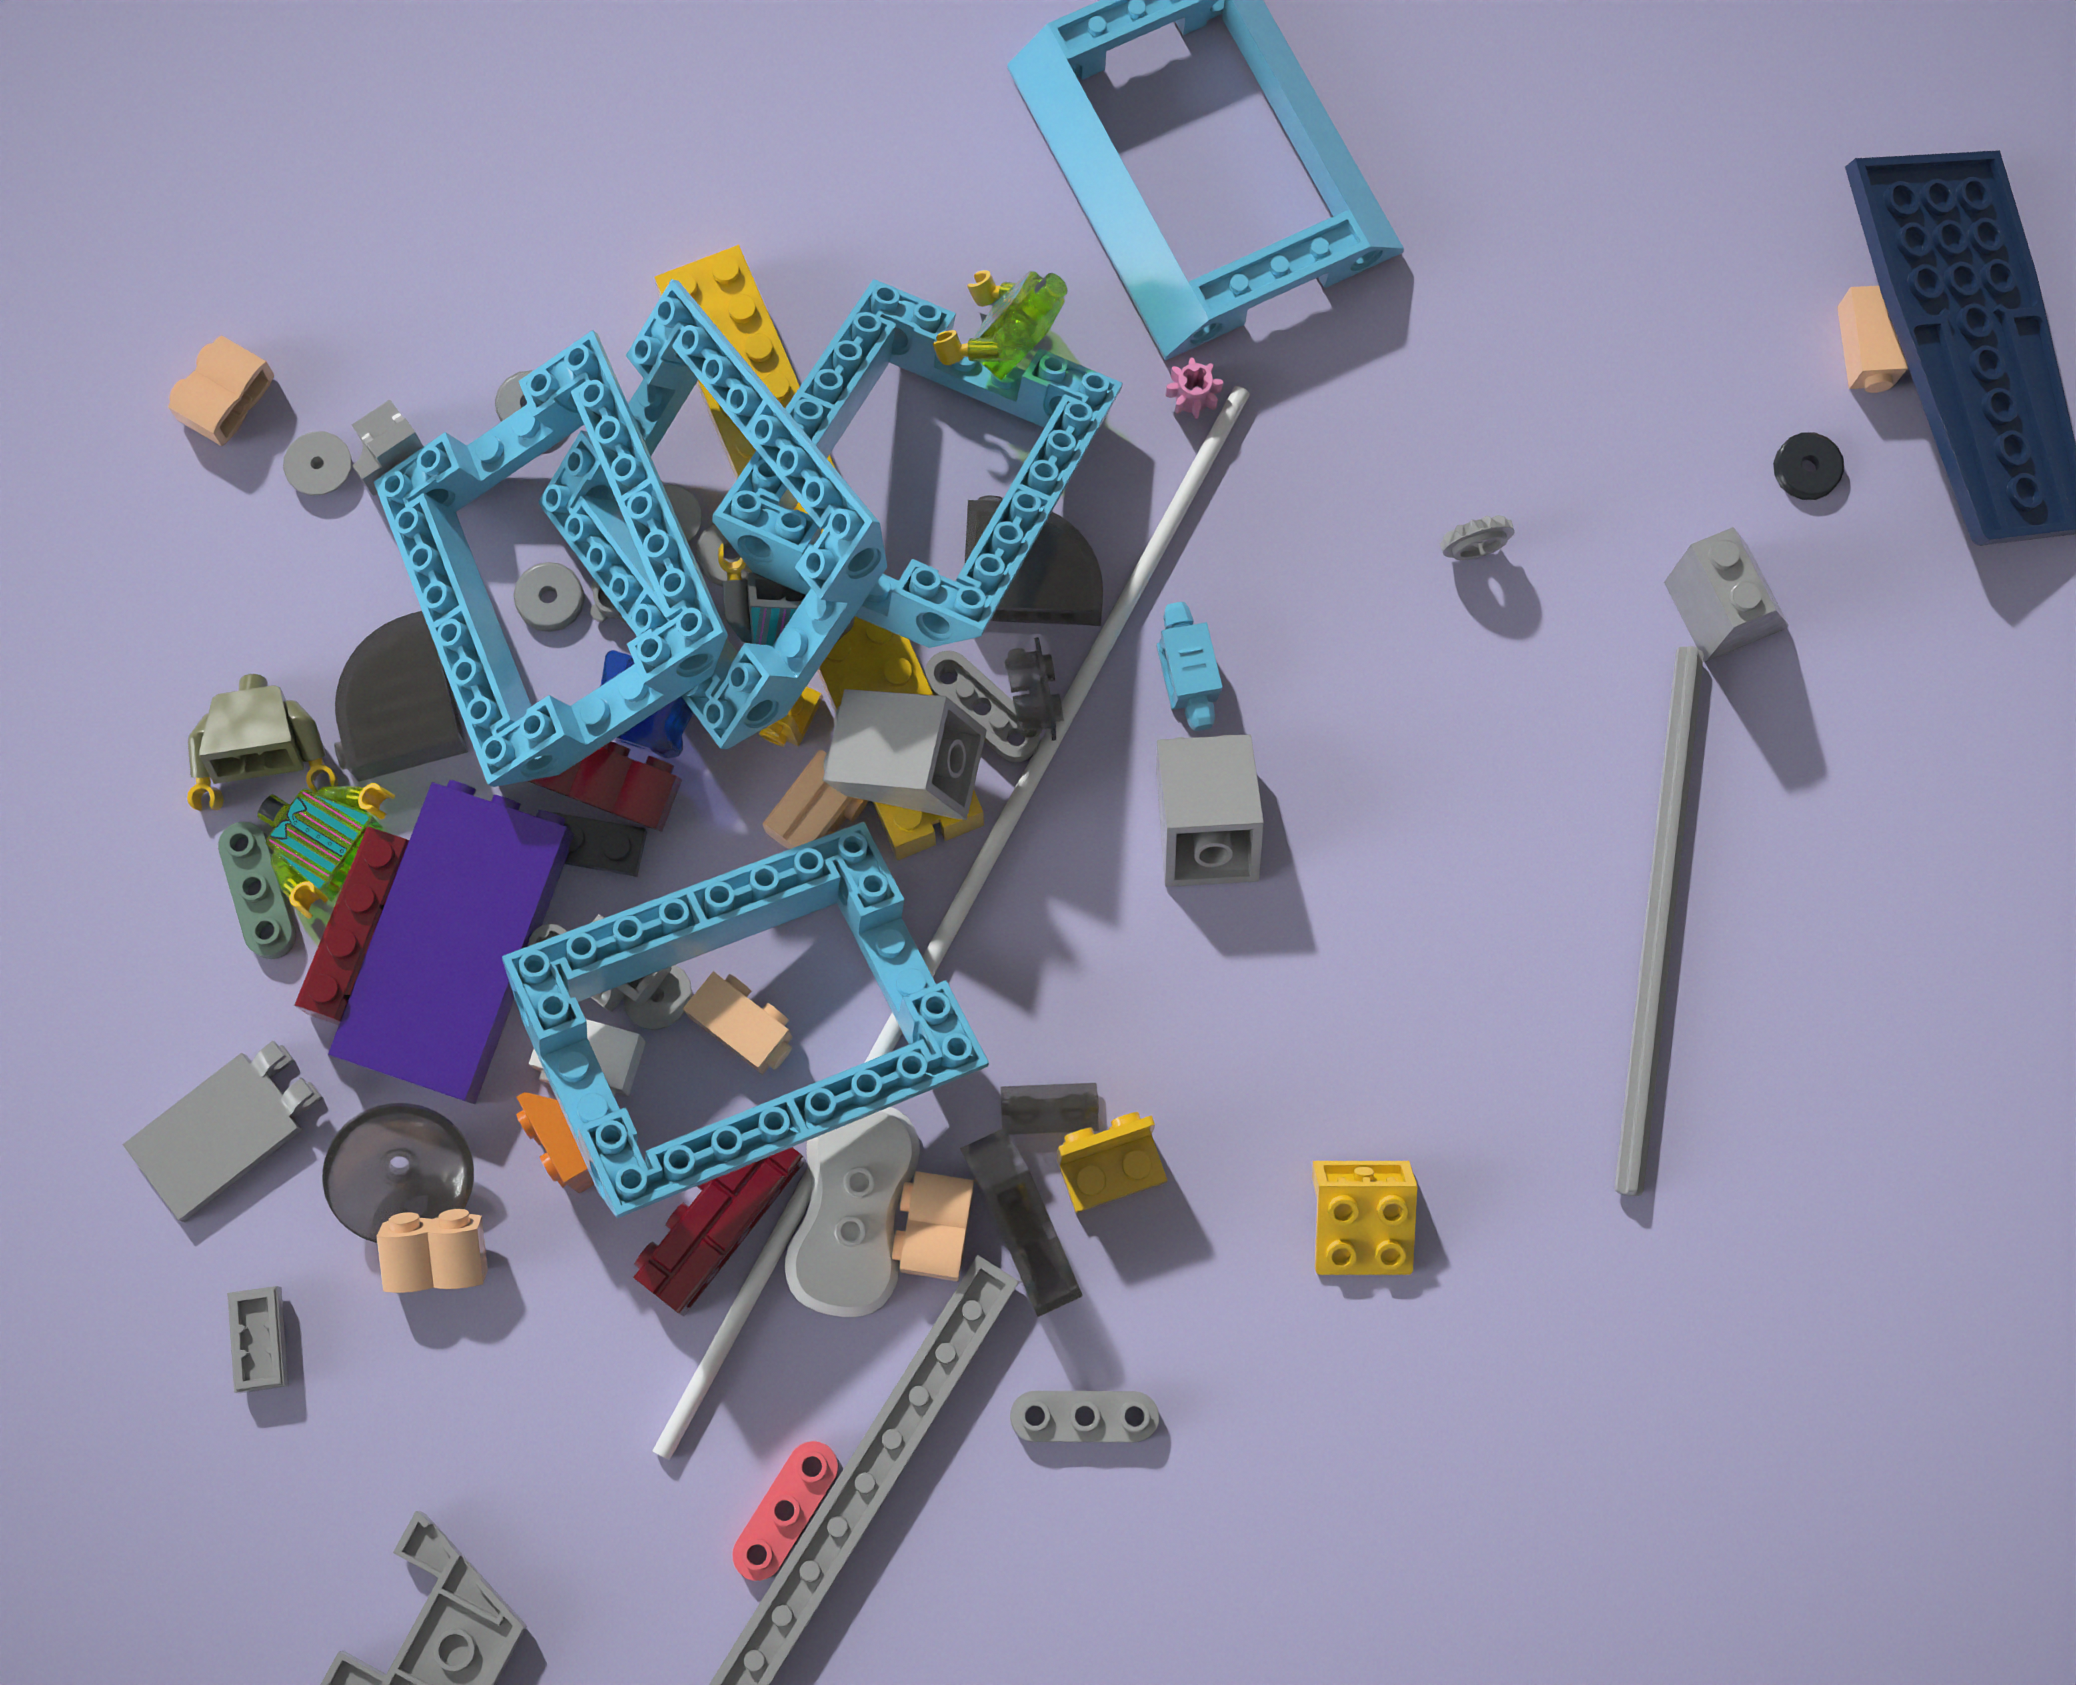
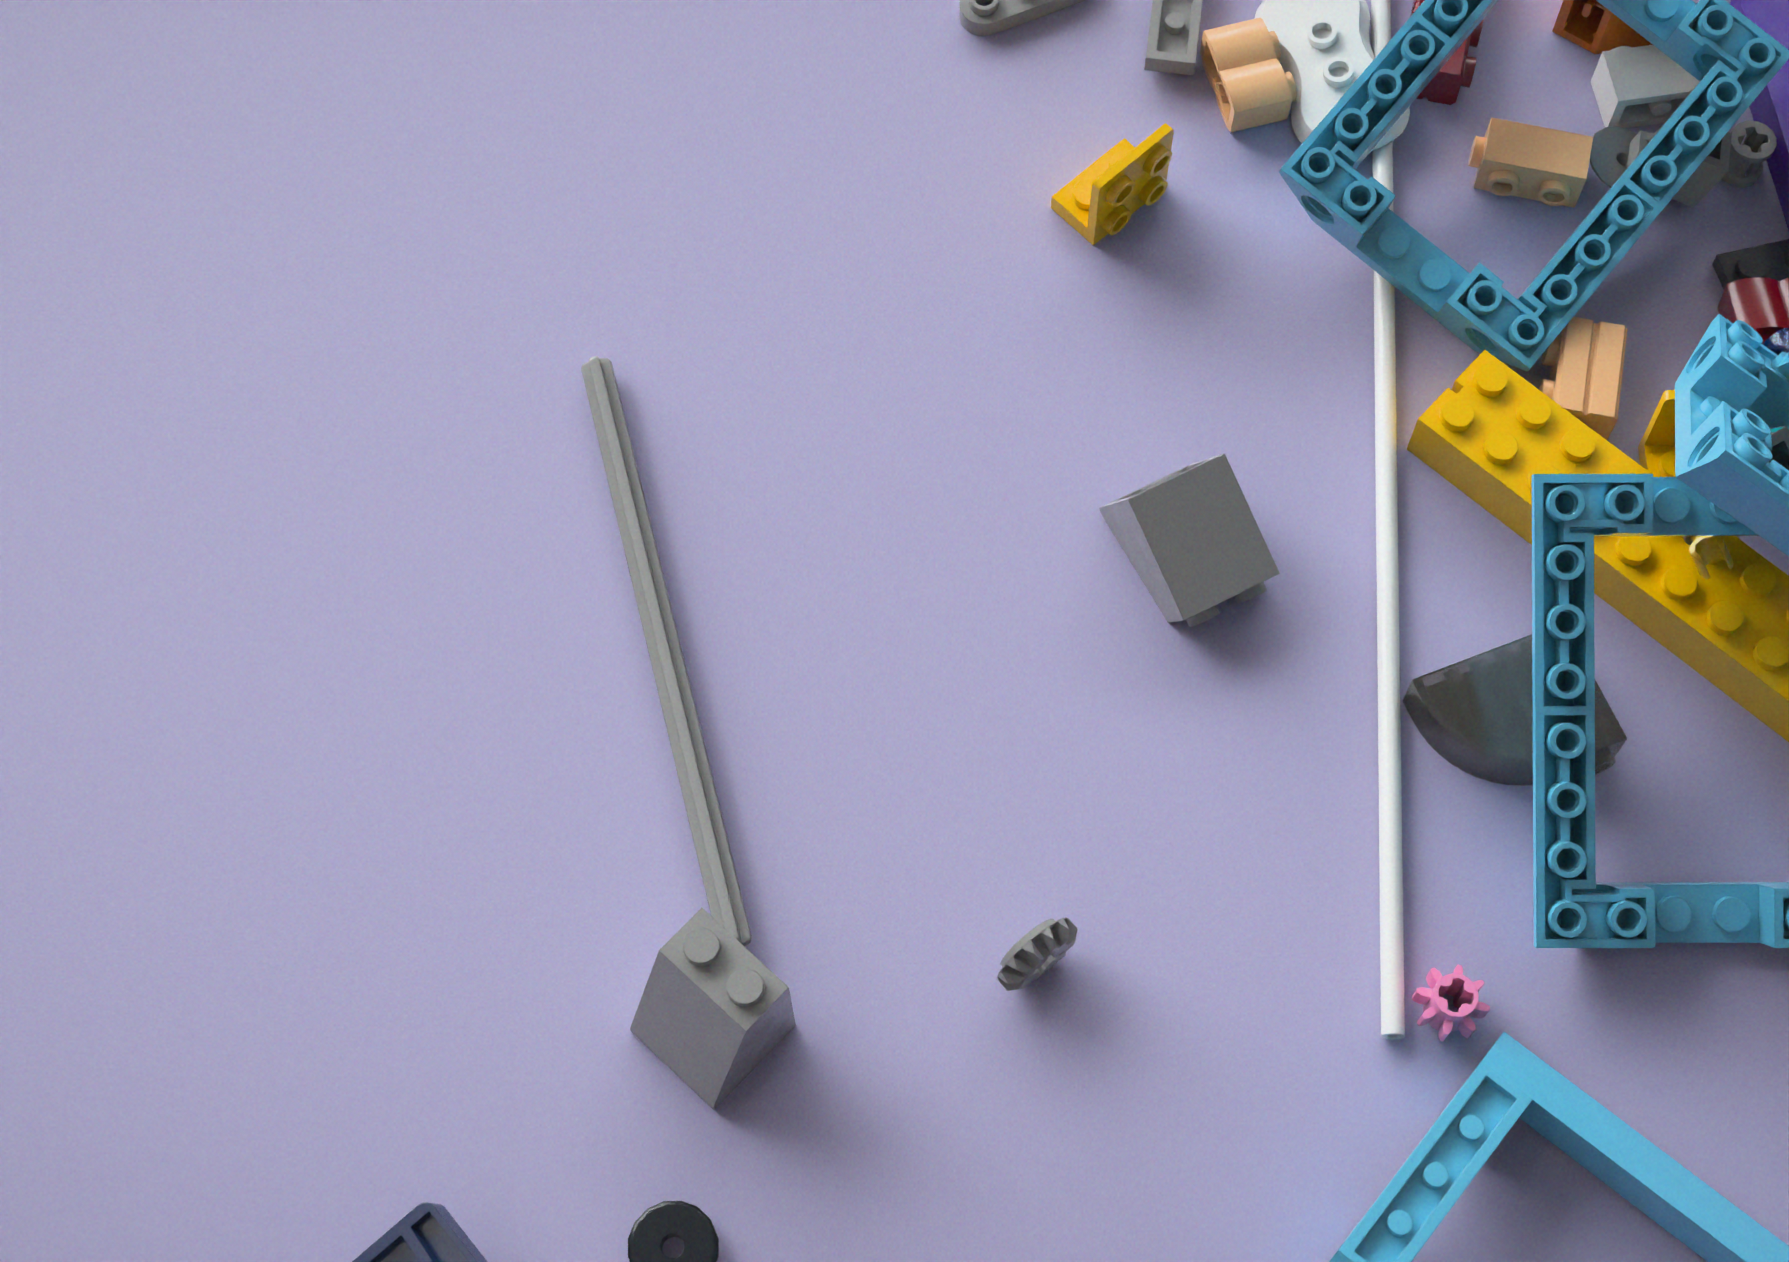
camera: 160 degrees right, 10 degrees down
(905, 751) = (1530, 409): light grey slope -> none
(975, 688) = (1457, 534): light grey plate -> none
(1012, 325) = (1701, 957): clear neon green torso -> none
(1021, 1222) = (1176, 79): clear smoke brick -> none
(1039, 708) = (1416, 559): clear smoke hinge -> none
(1049, 1108) = (1198, 215): clear smoke hinge -> none
(1189, 666) = (1286, 678): medium azure piece -> none
(1364, 1217) = (852, 243): yellow bracket -> none

